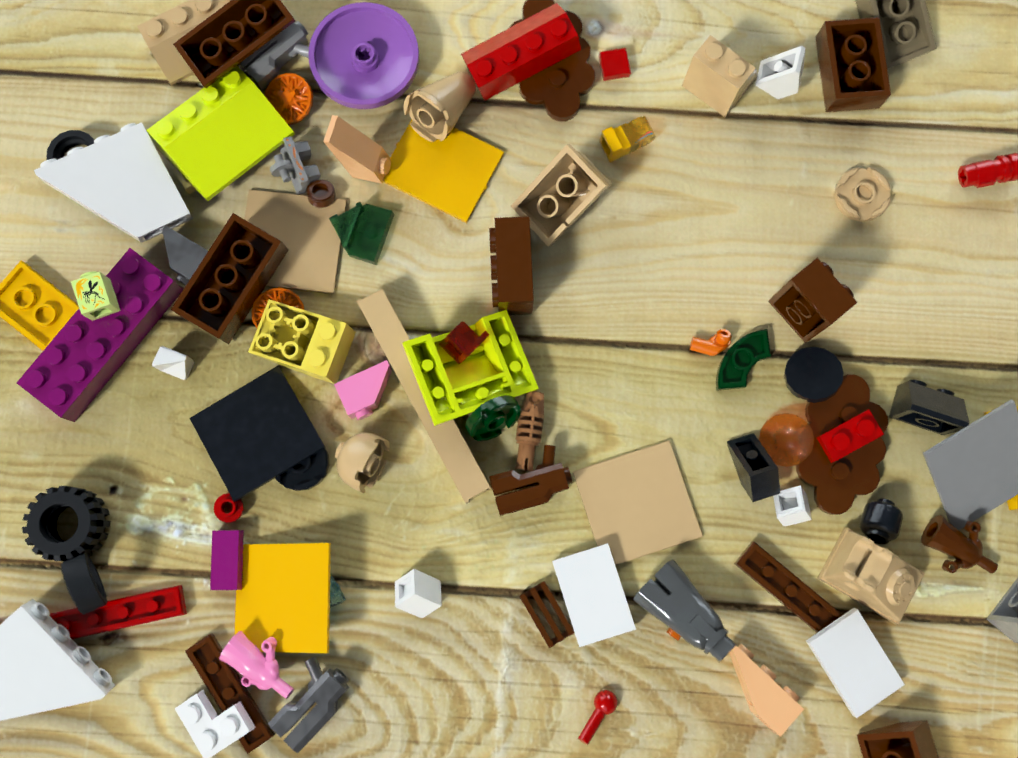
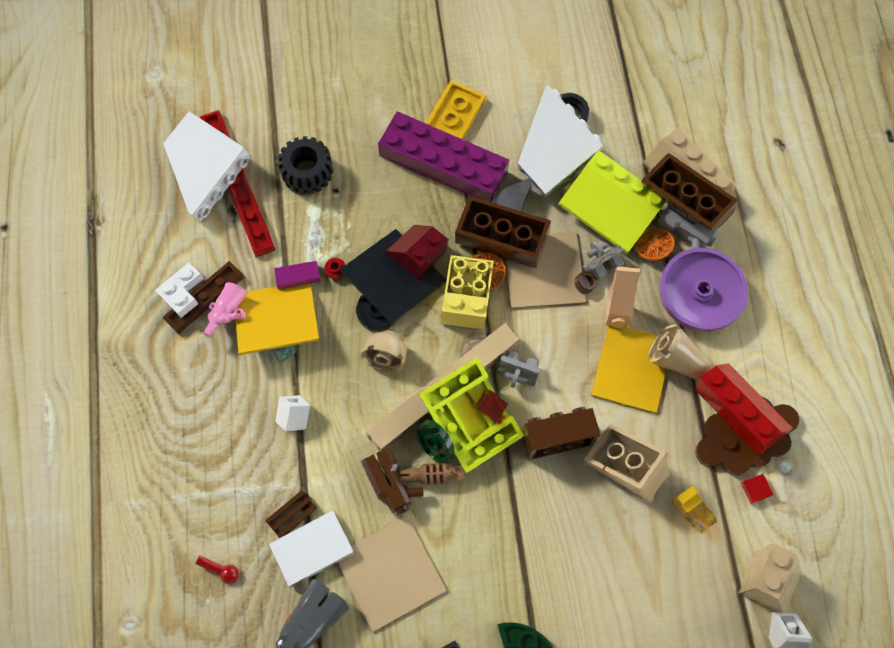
camera: 80 degrees right, 10 degrees down
(84, 583) = (265, 184): black tyre -> none
(95, 295) = (467, 143): yellowish green brick -> none
(173, 363) = (433, 208): white slope -> none
(227, 393) = (419, 249): none -> dark red slope
(325, 691) = (198, 355): flat silver piece -> none
(363, 231) = (564, 319): clear green slope -> none
(364, 390) = (438, 343): bright pink slope -> none
(422, 300) = (518, 371): none -> light grey hips
(712, 346) = (533, 614): orange arm -> none

